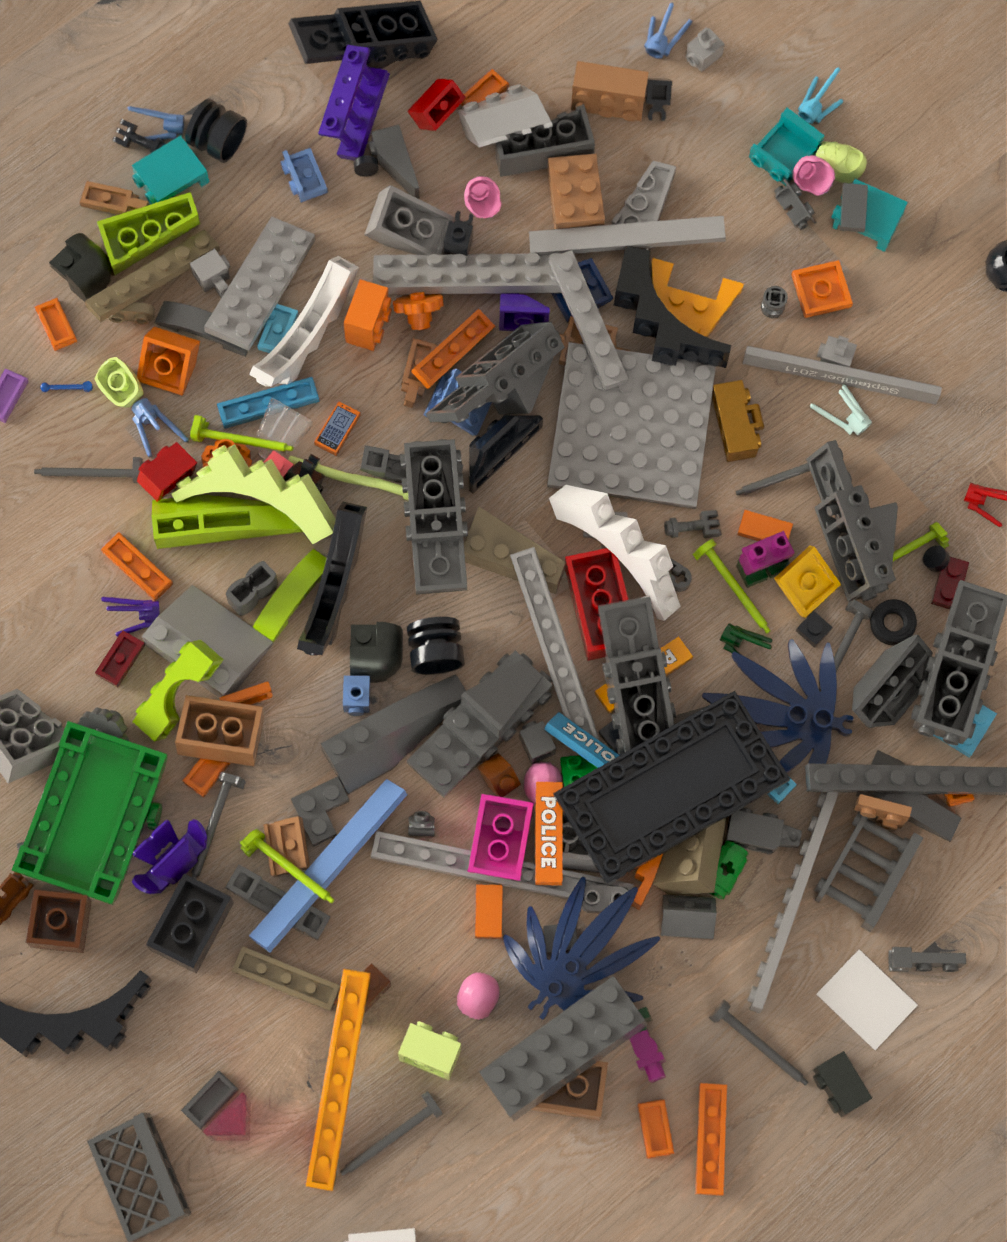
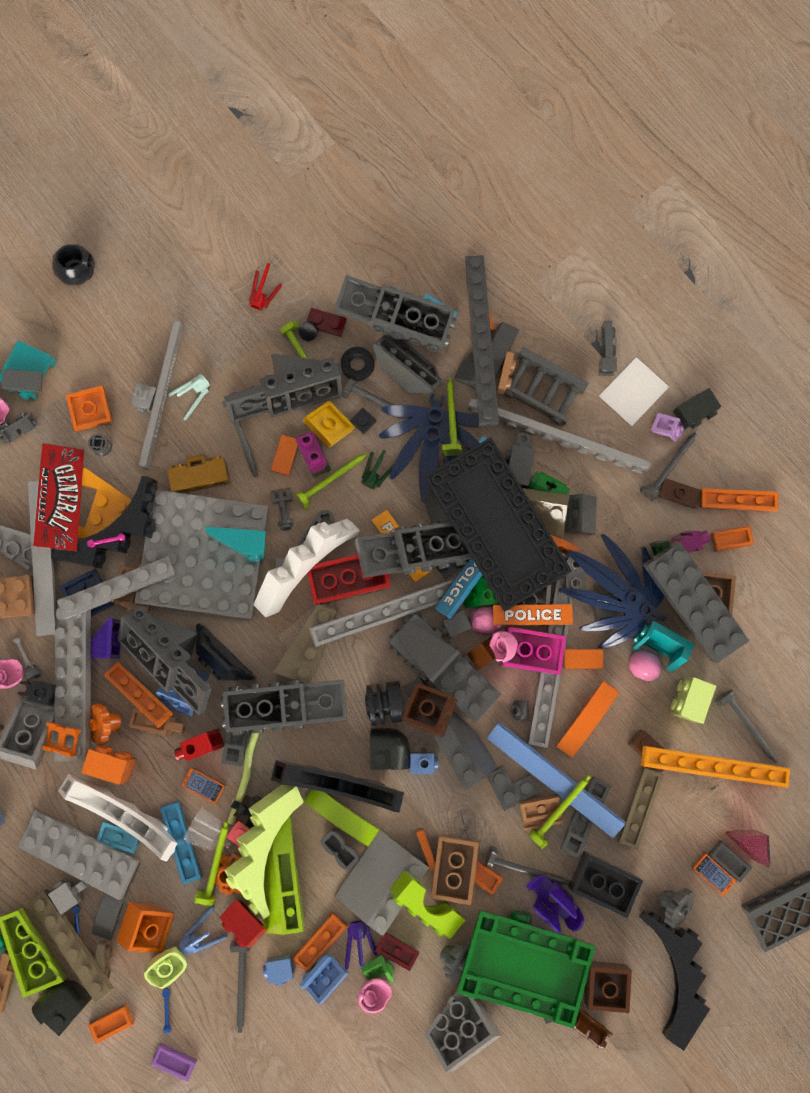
camera: 90 degrees left, 10 degrees up
(68, 627) = (374, 995): none -> bright pink hair
(93, 568) = (323, 978): none -> medium blue bracket
(100, 634) = (378, 967): none -> bright green bracket
(107, 516) = (279, 969): none -> medium blue brick
(155, 1018) = (676, 905): none -> dark grey plant
(192, 283) = (76, 909): none -> blue hinge
(194, 1076) = (713, 874): none -> tile
(387, 417) = (199, 745): none -> red torso
(391, 259) = (61, 747): none -> orange piece
(408, 911) = (587, 719): none -> orange slope
(425, 696) = (429, 710): none -> reddish brown brick
(484, 227) = (31, 671): none -> hinge
(507, 792) = (503, 645): none -> bright pink hair
(510, 1015) = (666, 643): none -> teal panel
(644, 289) = (91, 543): none -> dark pink hinge
(644, 474) = (246, 543): none -> teal slope
(703, 252) = (59, 498): none -> red sticker
(720, 1055) = (679, 493): none -> reddish brown plate
(776, 740) = (453, 448): none -> lime piece
(815, 1042) = (667, 426): none -> lavender bracket

